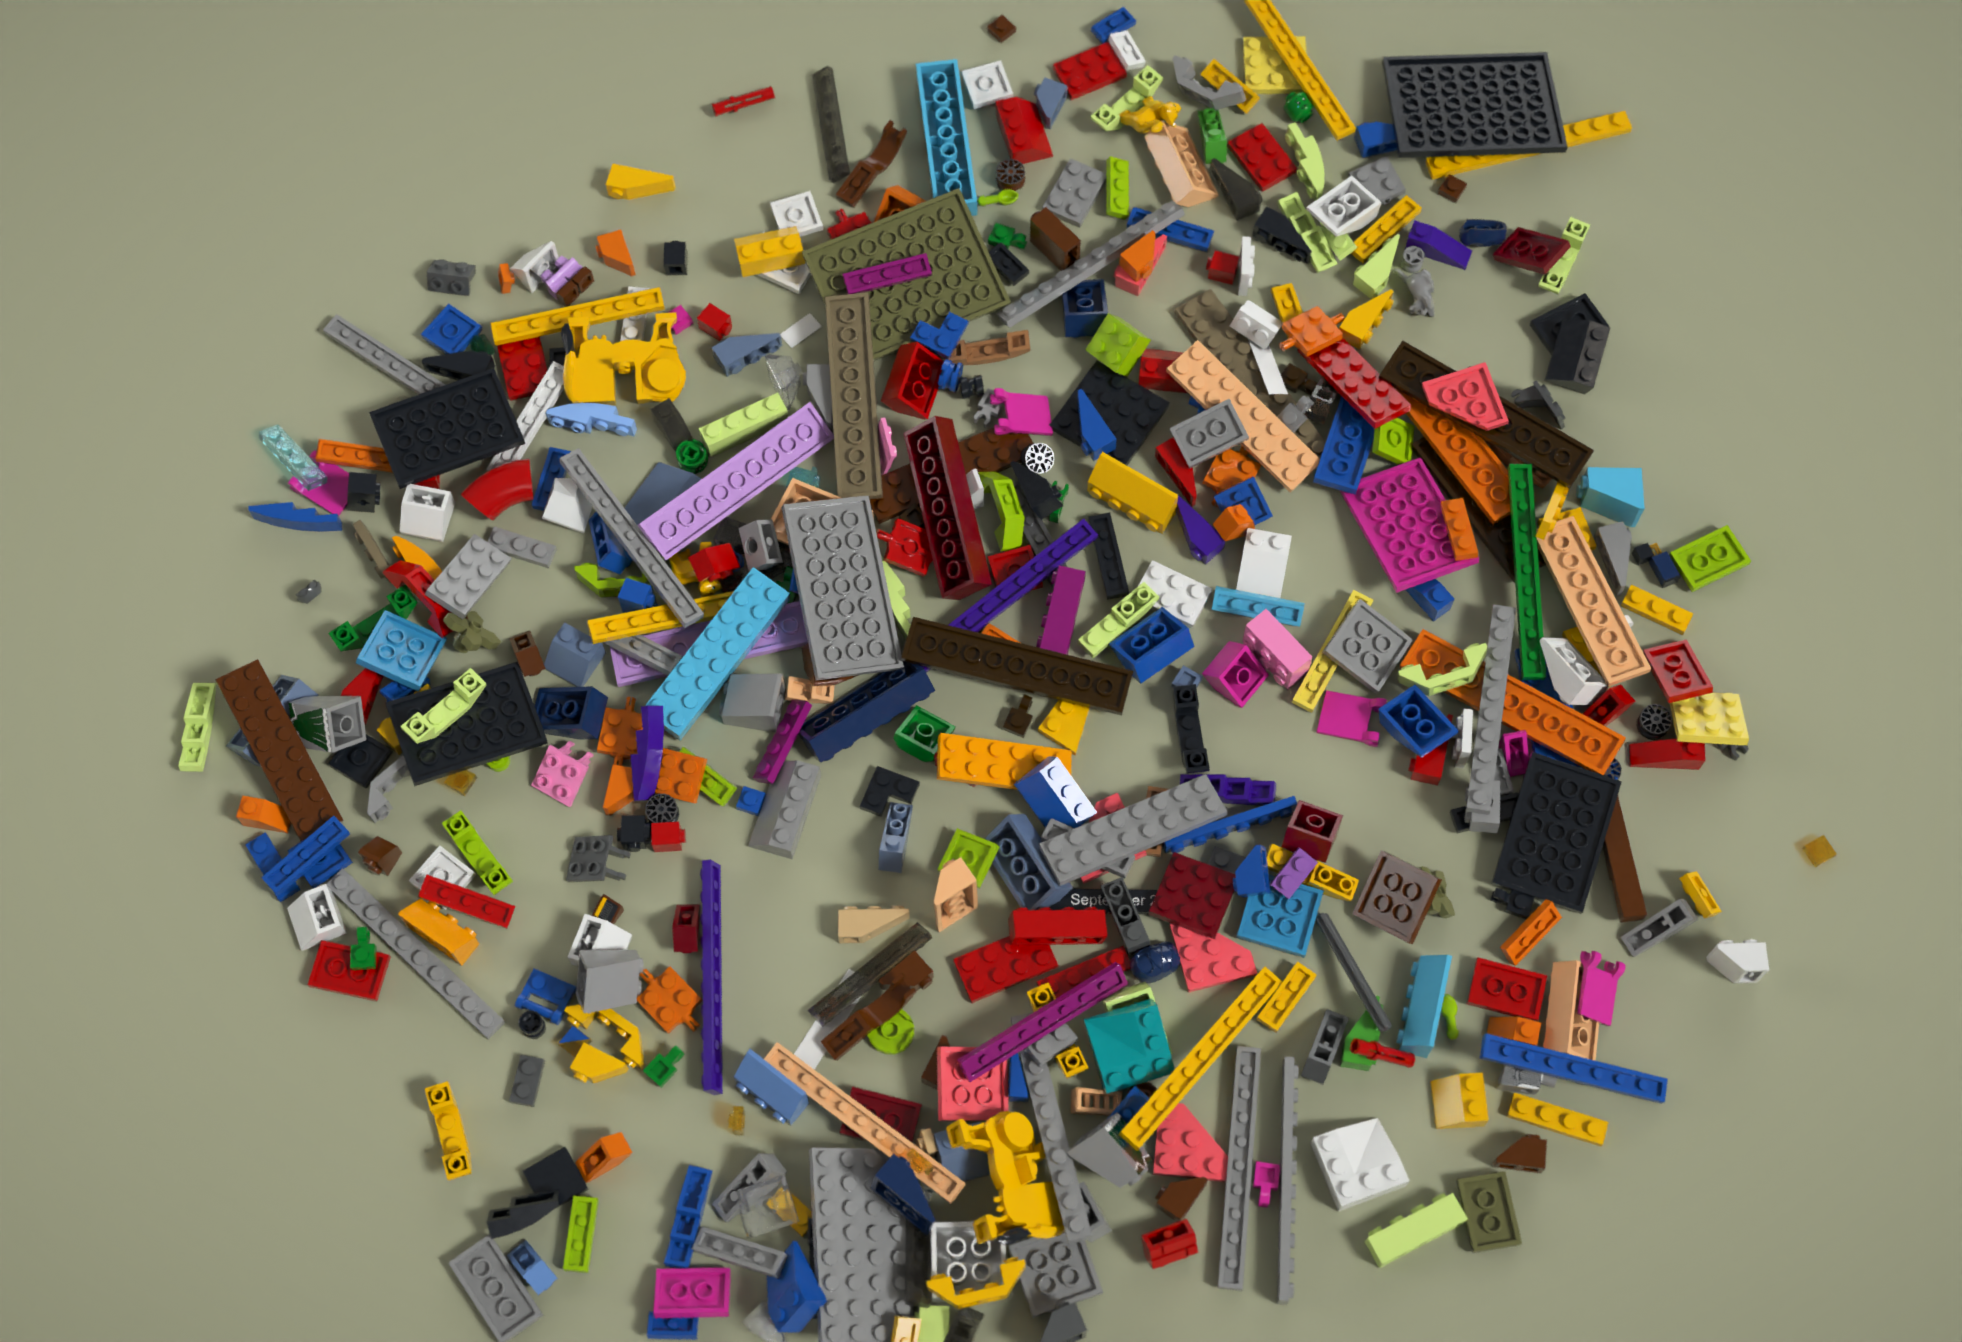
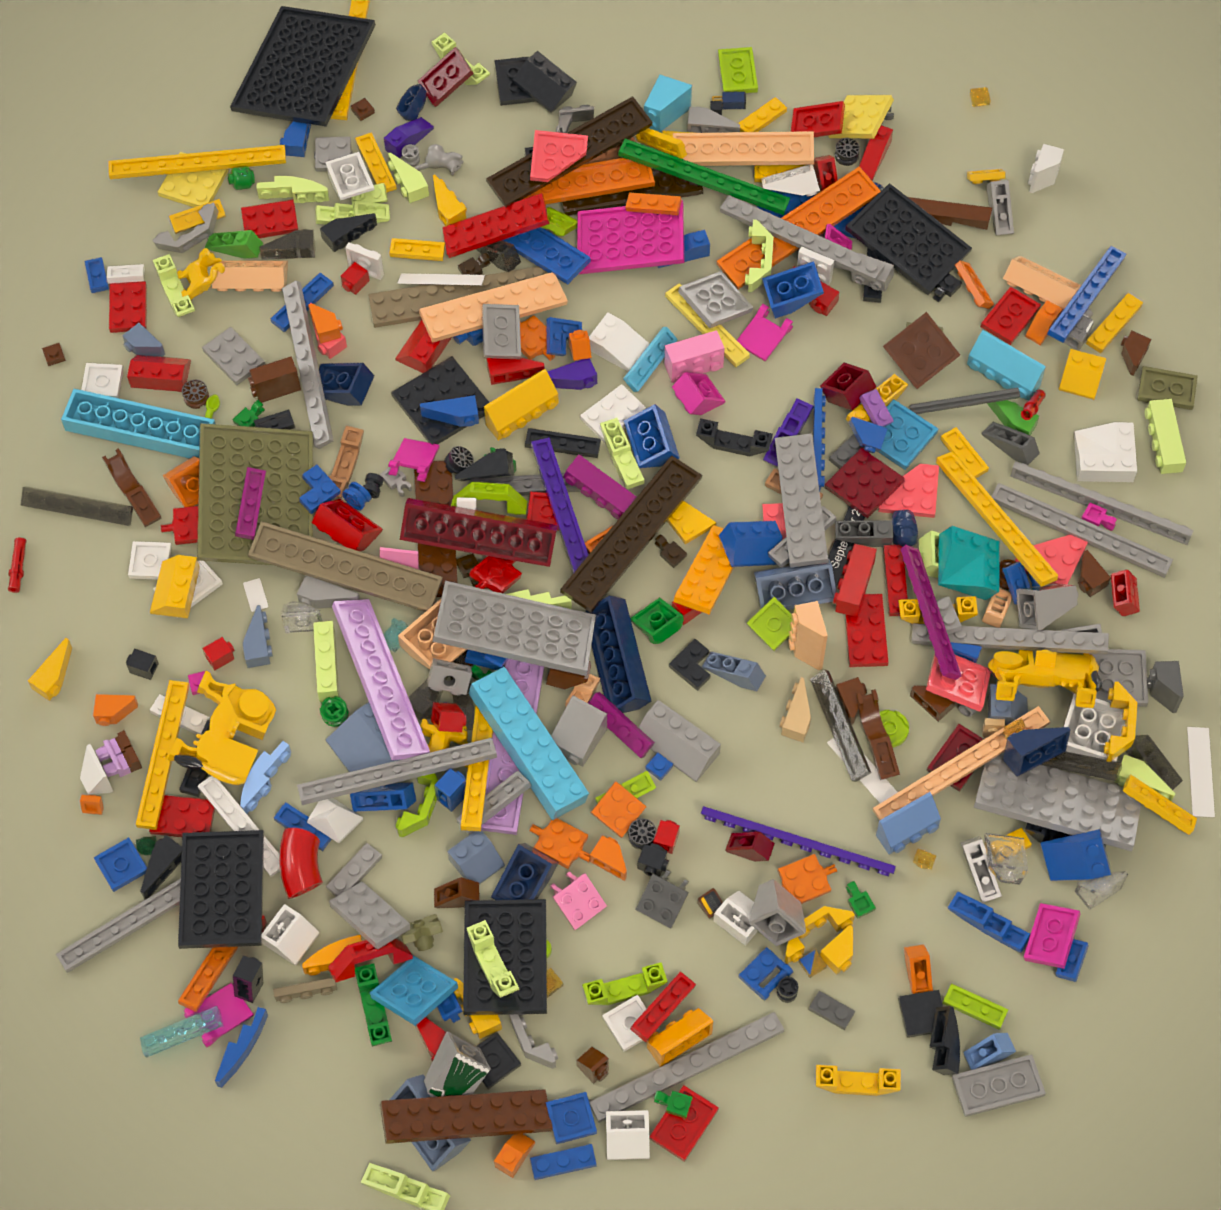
camera: 70 degrees left, 5 degrees down
(305, 855) = (570, 1124): blue plate -> none
(310, 592) = (319, 1056): dark grey plate -> none
(450, 277) = (66, 849): dark grey bracket -> none
(649, 753) = (600, 823): dark purple slope -> none
(671, 423) = (299, 716): clear smoke slope -> none
(740, 1252) = (1033, 888): light grey plate -> none
(1117, 187) = (246, 324): lime plate -> none
(1118, 344) = (391, 368): lime brick -> none
(1186, 677) = (688, 427): sand blue plate -> none
(1256, 324) = (419, 272): white bracket -> none
(1293, 414) = (508, 274): light grey plate -> none
(1312, 331) = (442, 238): orange plate -> none
(1598, 988) = (1031, 257): dark pink flag -> none

